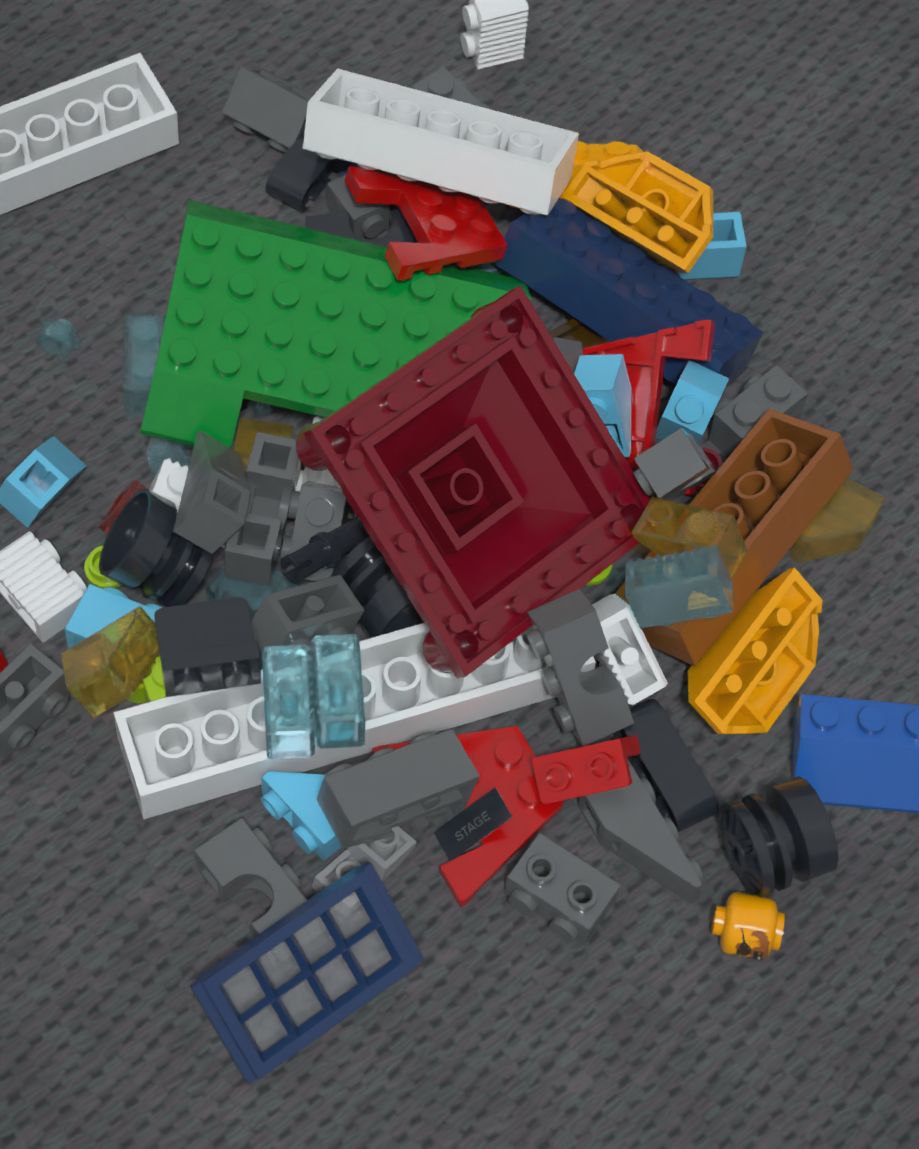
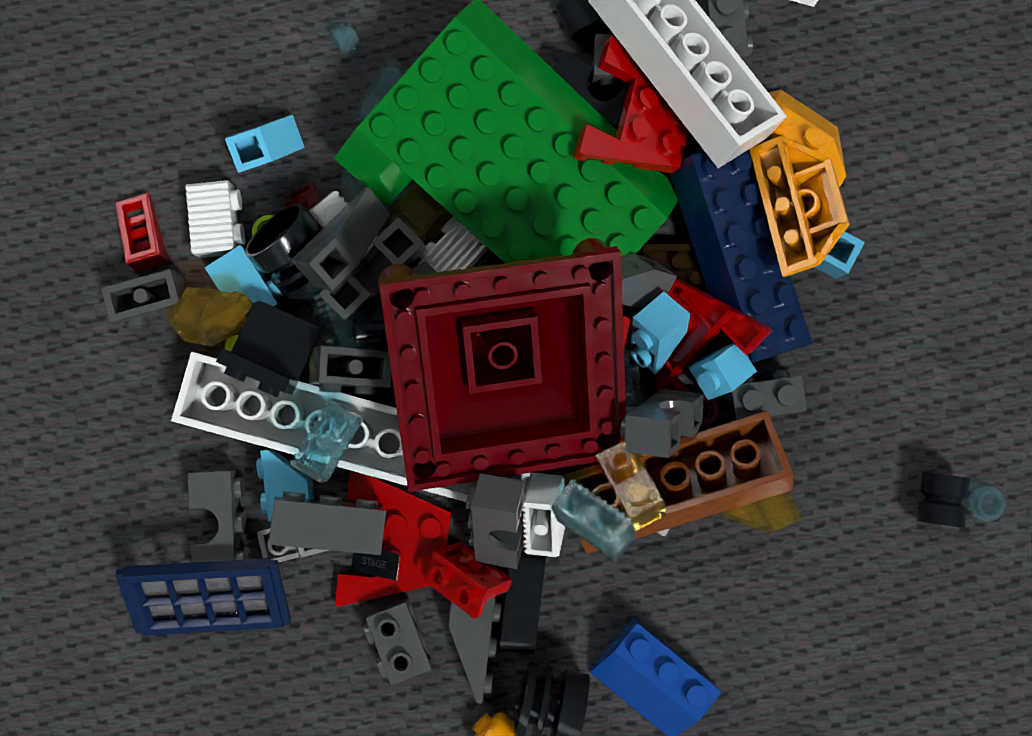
camera: 35 degrees right, 25 degrees up
(288, 702) = (289, 427): clear light blue brick -> none
(759, 658) = (645, 572): light orange wedge -> none

